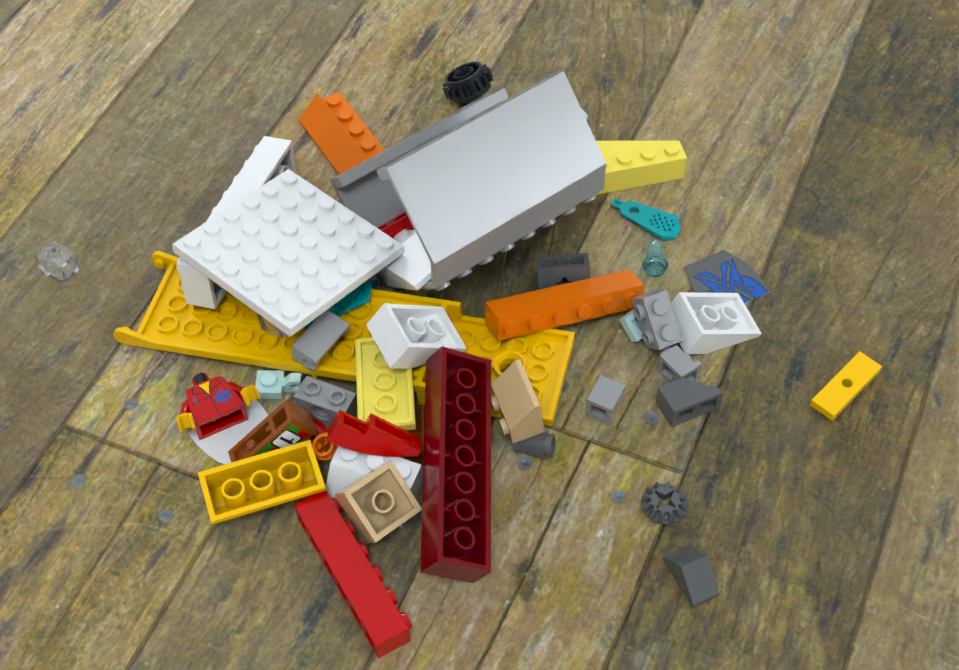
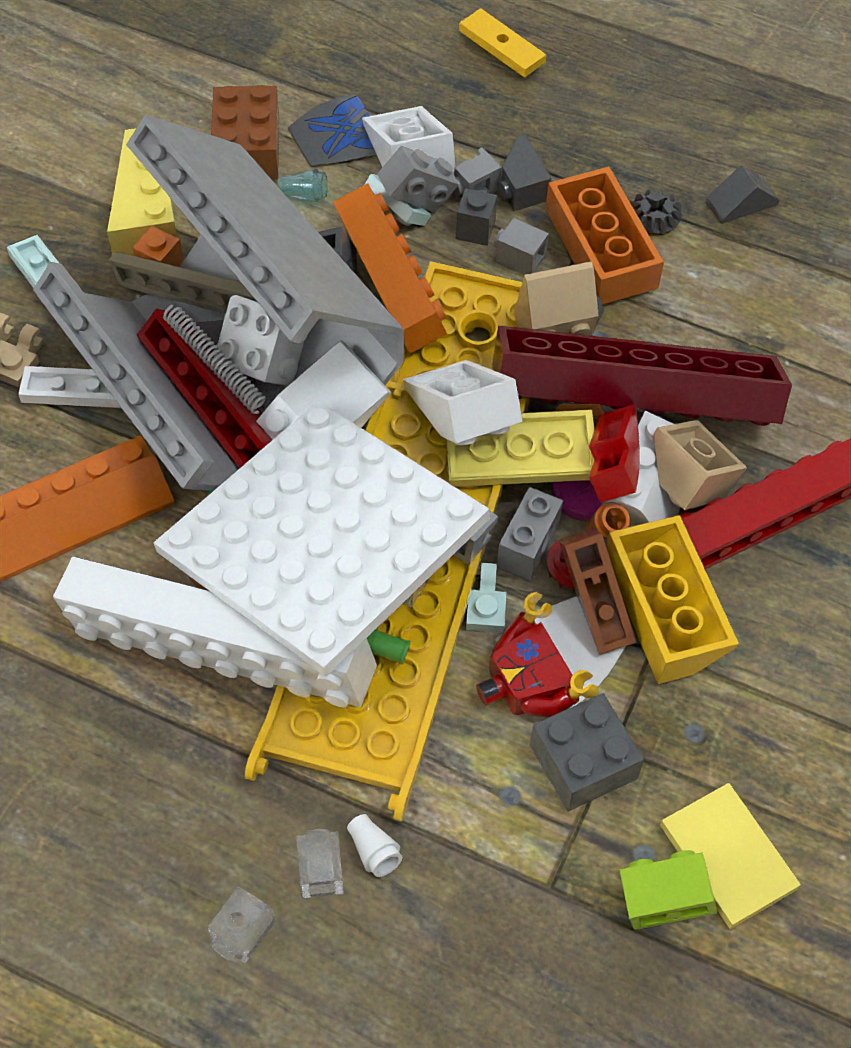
camera: 90 degrees left, 5 degrees up
(38, 481) = (667, 890): none -> lime brick
(66, 529) = (739, 857): none -> light yellow tile
(91, 297) = (319, 863): none -> clear brick
(99, 325) = (376, 849): none -> white cone
(148, 437) = (586, 752): none -> dark grey brick
(228, 310) = (388, 646): none -> bright green pin
(618, 452) = (604, 229): none -> orange brick
(632, 366) = (476, 216): none -> dark grey brick
(698, 215) = (250, 119): none -> dark orange brick

